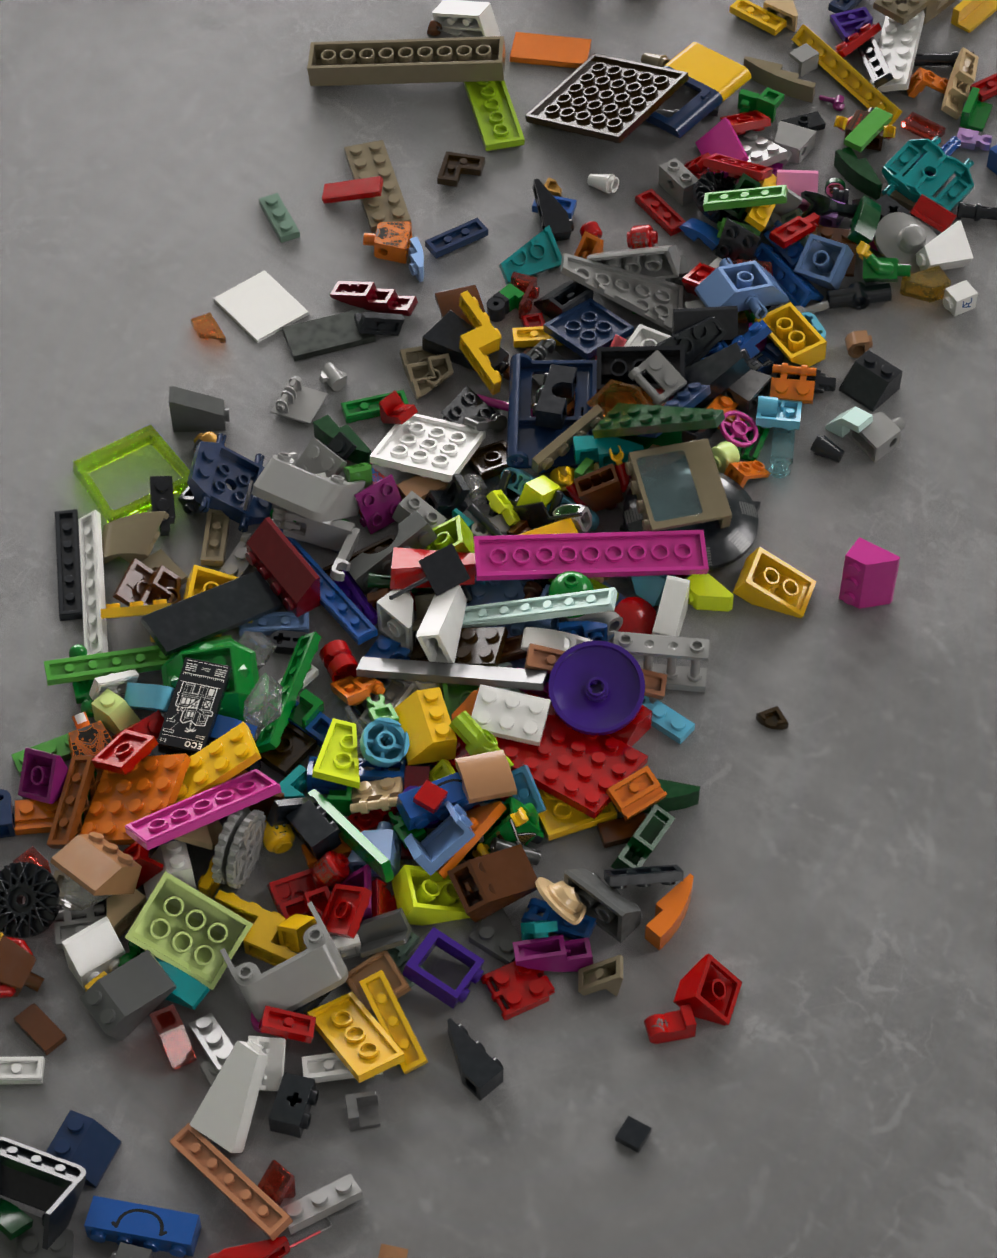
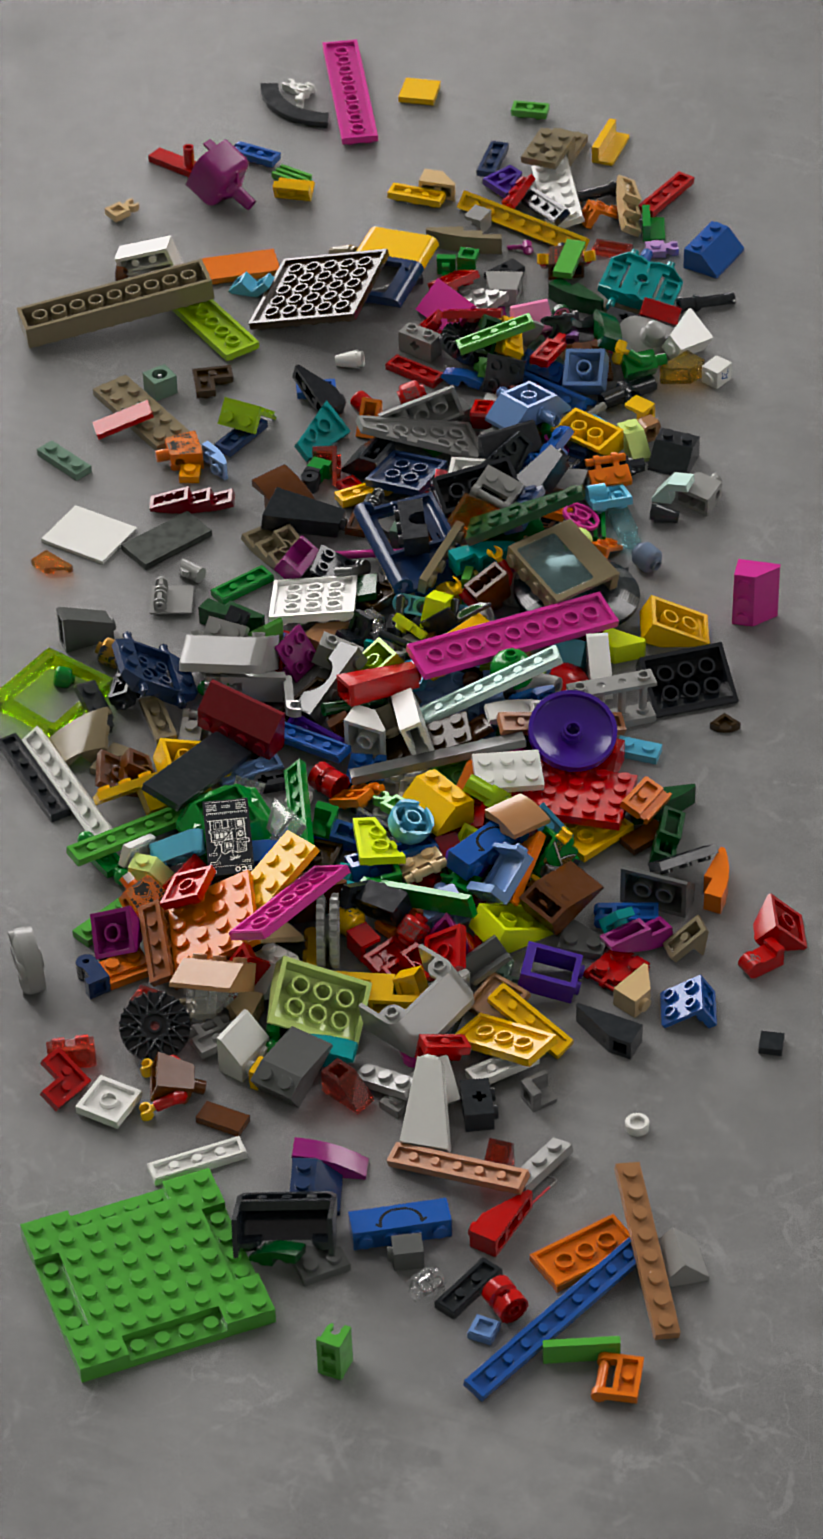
camera: 20 degrees left, 10 degrees down
(116, 1118) = (343, 1160): none -> magenta slope
(153, 460) = (63, 677): none -> green piece
(278, 860) = (360, 938): none -> red panel
(379, 323) = (211, 517): black panel -> none
(388, 266) = (190, 473): none -> light orange plate
(394, 410) = (267, 580): red slope -> none
(409, 158) = (160, 382): none -> sand green piece
(430, 796) = (478, 843): red tile -> none
(436, 395) = (297, 559): none -> magenta panel
(442, 570) = (392, 678): black piece -> none
(445, 1187) = (637, 1124): none -> white tile
(465, 216) = (242, 415): none -> lime plate
(480, 342) = (318, 505): yellow bracket -> none
(488, 448) = (367, 587): none -> tile
(519, 1022) = (634, 992): none -> tan slope
(549, 75) = (248, 286): none -> medium azure slope
(562, 899) = (628, 889): tan hat -> none
(570, 1053) = (688, 1000): none -> blue bracket
(755, 656) = (689, 680): none -> black slope
(784, 495) = (647, 557): none -> sand blue head
(837, 354) = (635, 440): none -> yellowish green slope
(862, 318) = (640, 406): none -> yellow panel

